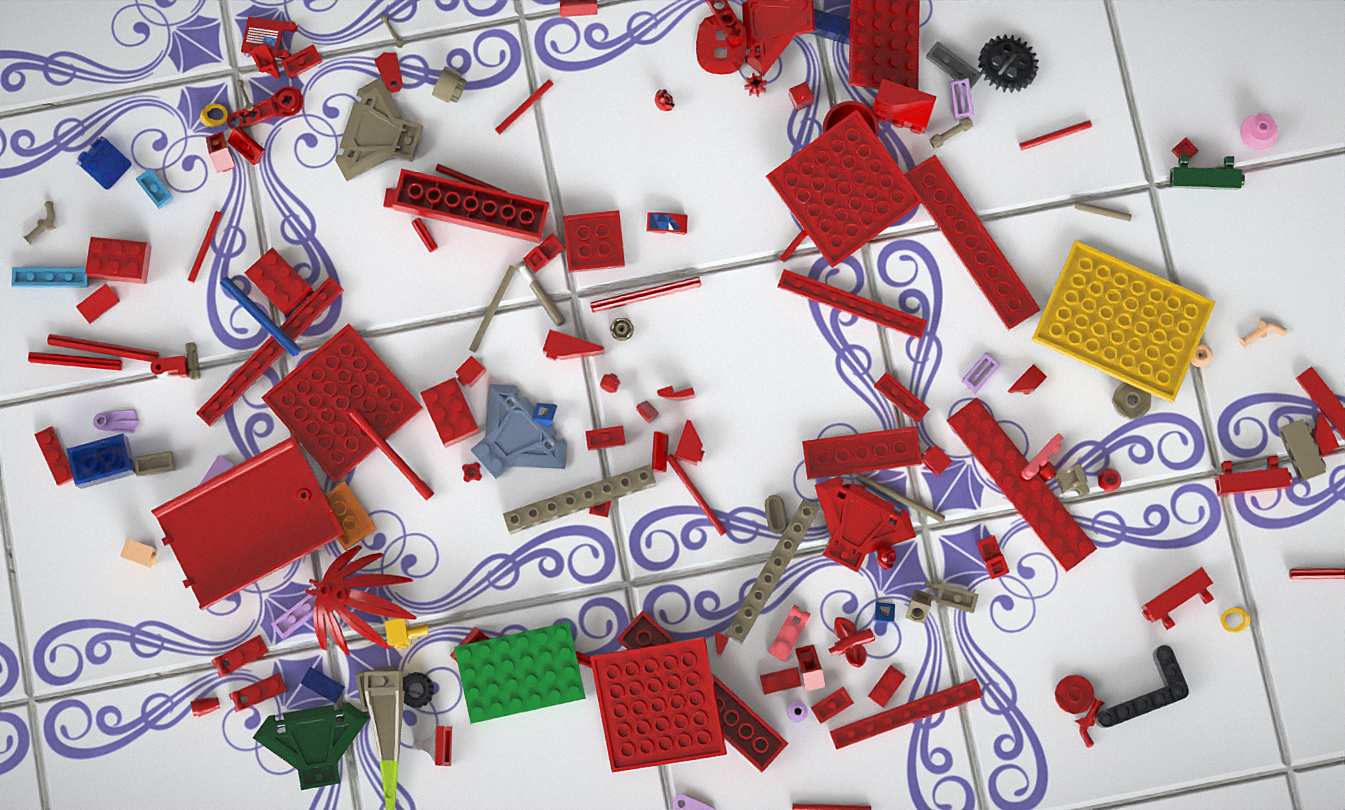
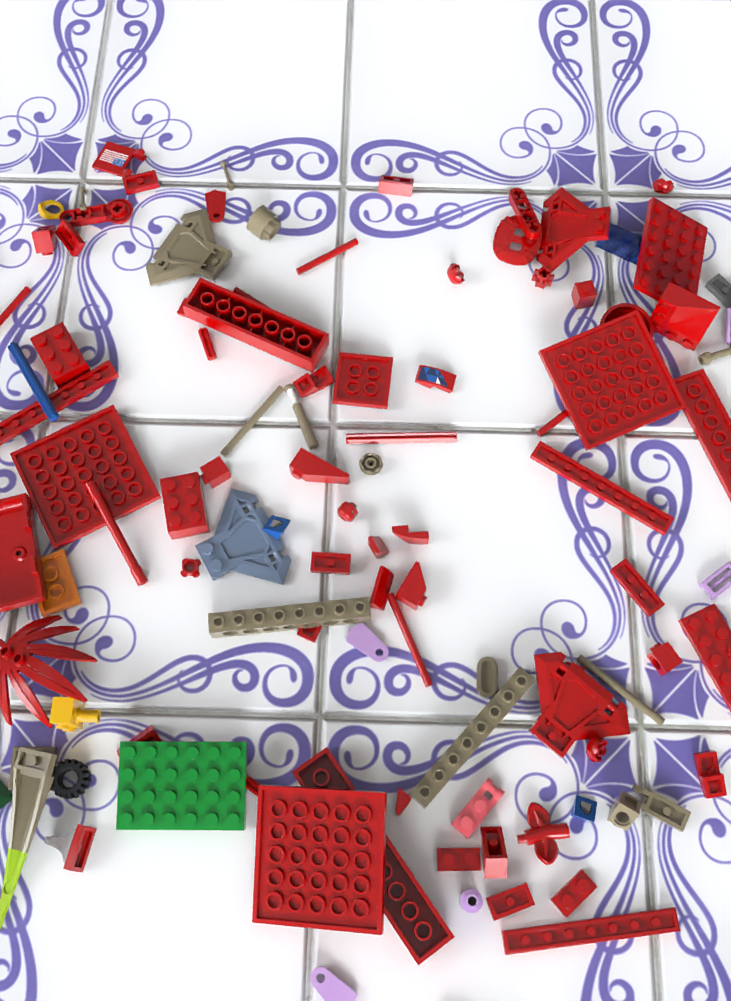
camera: 10 degrees right, 10 degrees down
(265, 59) = (109, 174): red slope -> none
(657, 506) = (367, 642): none -> lavender piece
(862, 453) = (587, 634): red plate -> none

